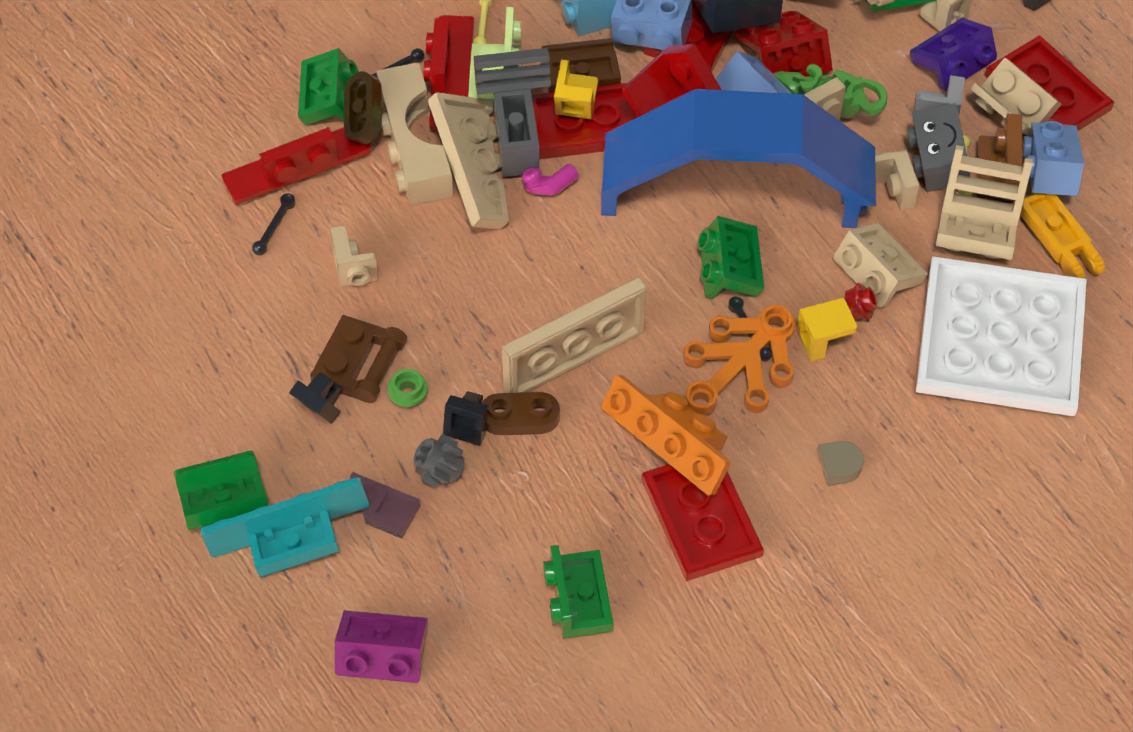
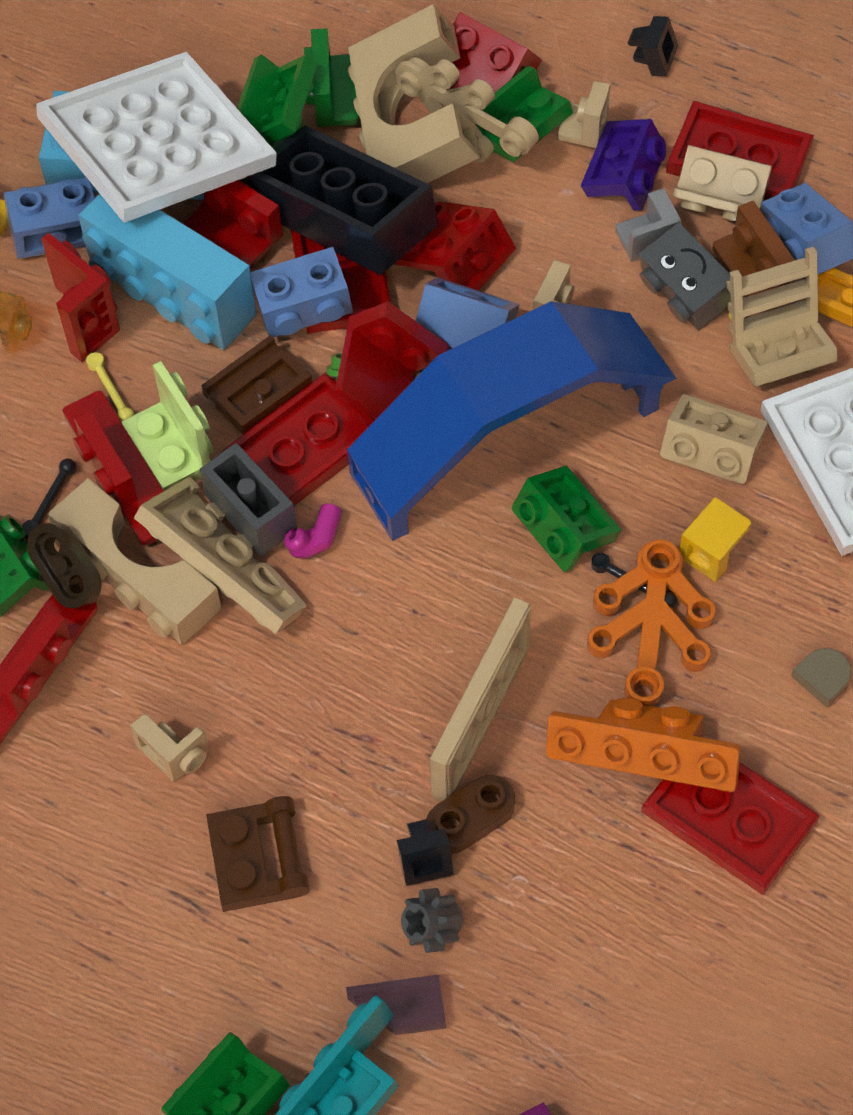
camera: 30 degrees left, 5 degrees up
(287, 202) = (46, 718): black hinge -> none
(318, 396) = (251, 926): black tile -> none
(407, 379) = (329, 845): bright green plate -> none
(512, 76) = (210, 436): dark grey tile -> none
(574, 93) = (280, 420): yellow panel -> none
(580, 593) = (676, 976): green bracket -> none
(854, 98) = (526, 277): bright green animal -> none
(861, 301) = (726, 488): red plate -> none
(900, 177) = (672, 332): tan bracket -> none

